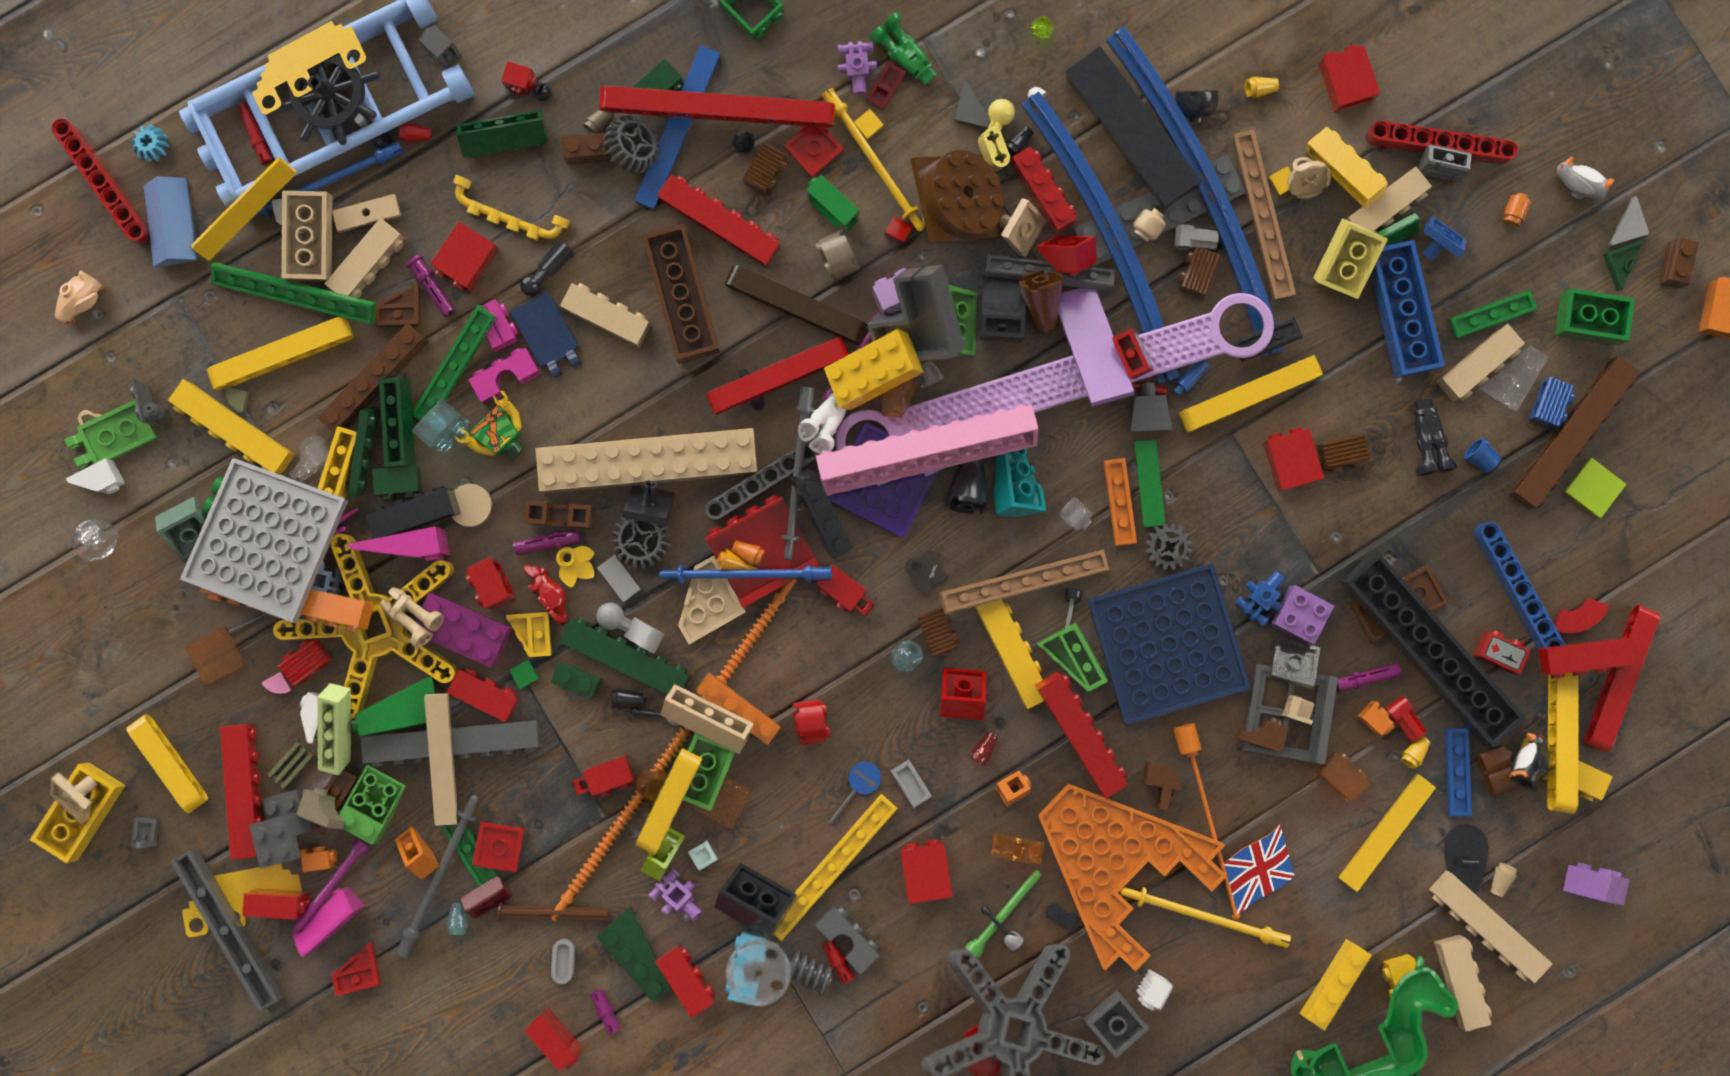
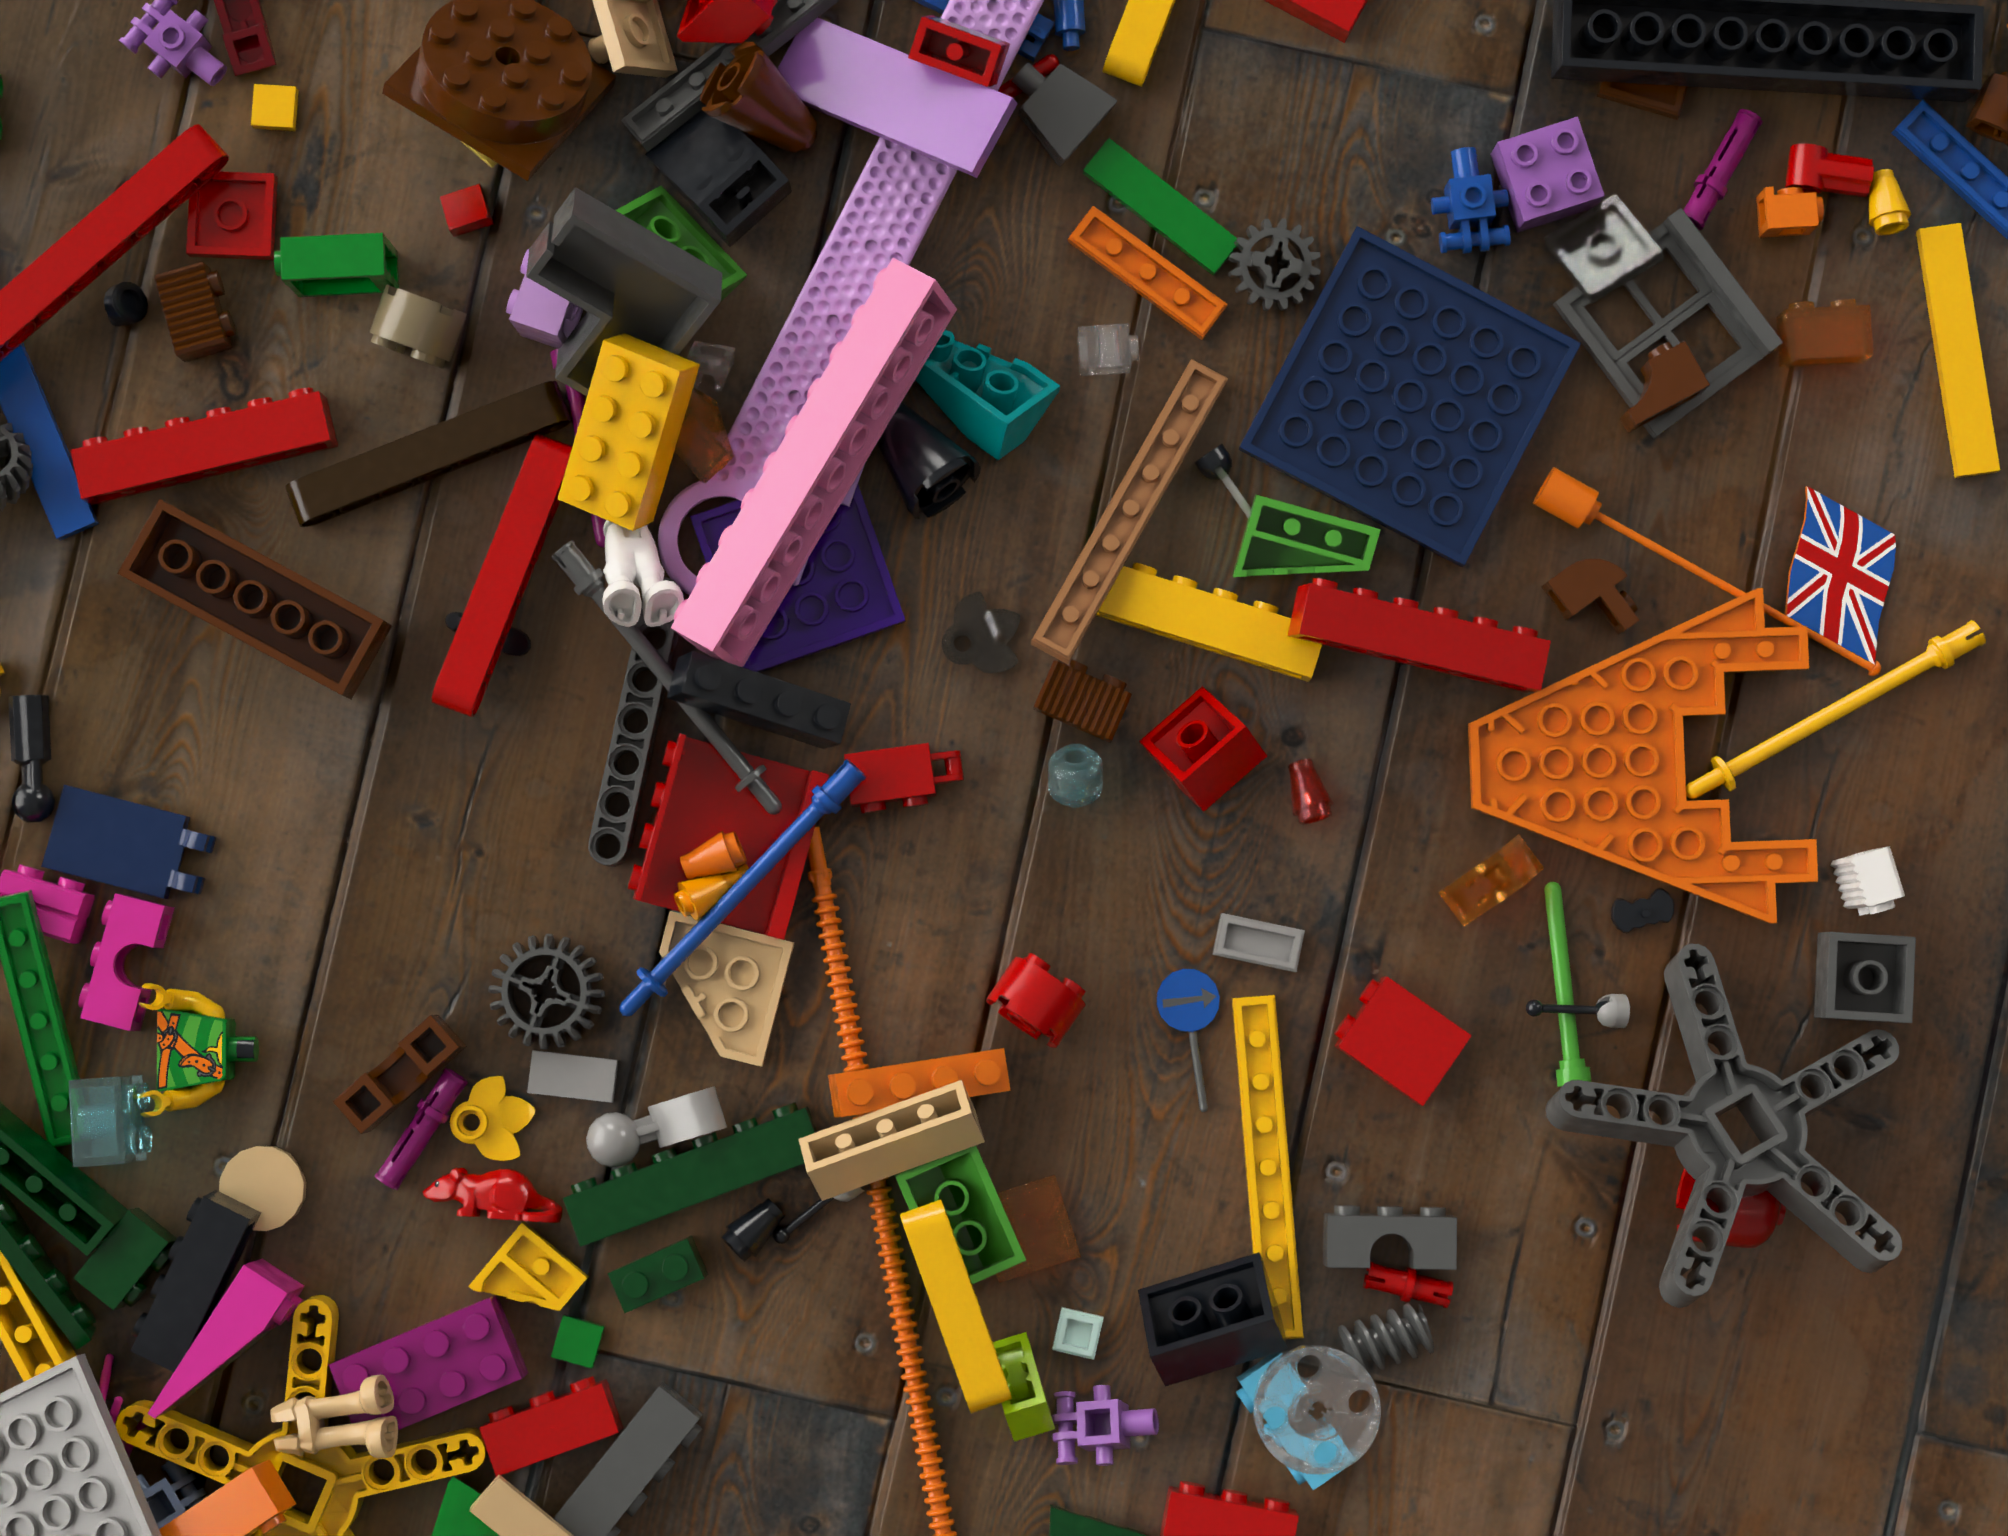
camera: 45 degrees left, 0 degrees up
(490, 583) = (402, 1265): red brick -> none
(605, 777) = (835, 1364): red brick -> none
(606, 315) = (180, 735): tan brick -> none
(645, 459) = (443, 877): tan brick -> none
(649, 504) = (508, 931): black tile -> none
(650, 786) = (909, 1312): reddish brown arch -> none
(841, 111) = (220, 128): yellow bar -> none
(1014, 780) = (1394, 791): orange brick -> none
(1298, 709) = (1673, 305): tan panel -> none

